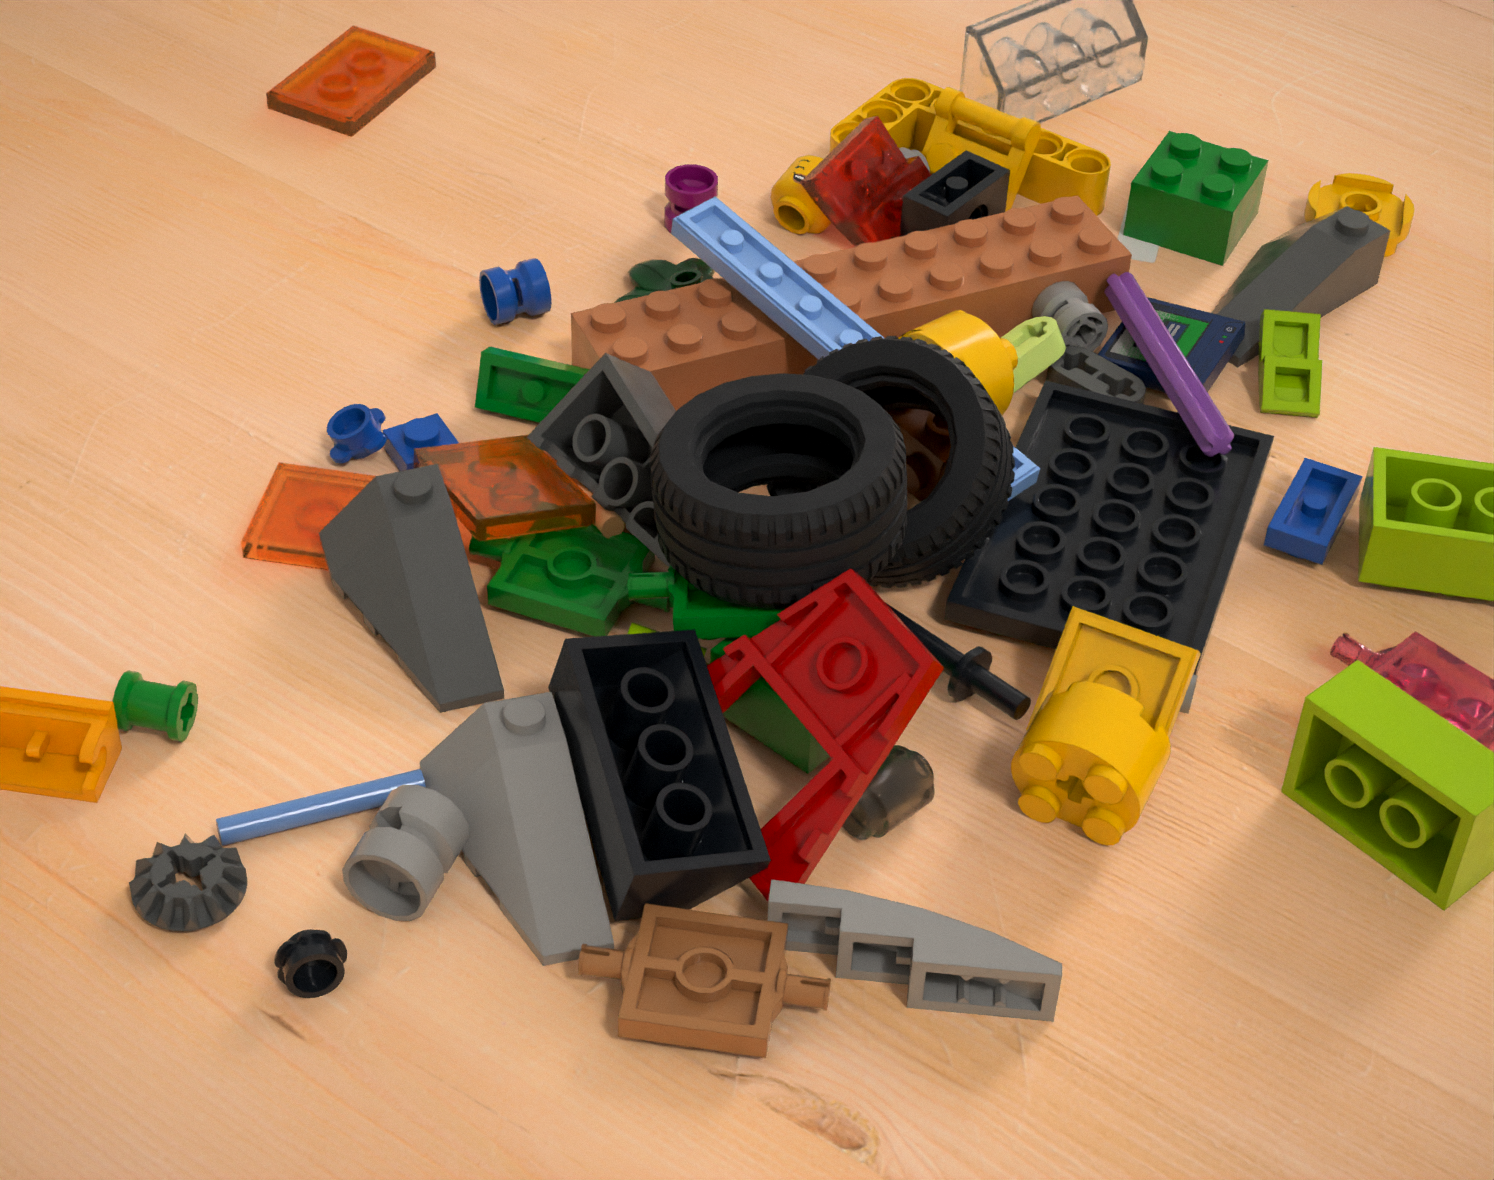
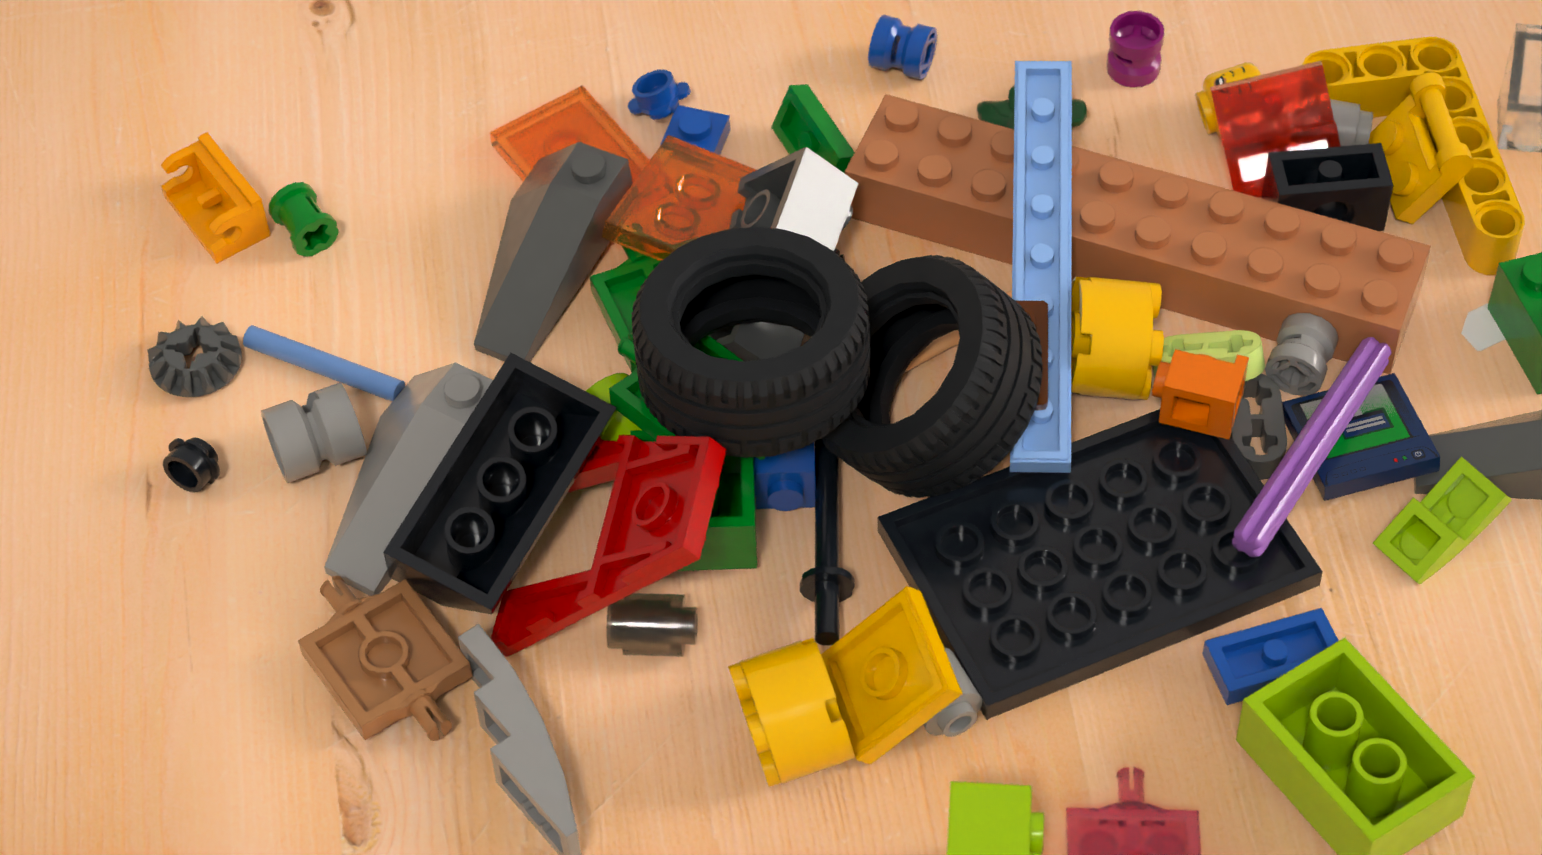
camera: 50 degrees right, 10 degrees up
(1064, 368) = (1200, 392): none -> orange brick

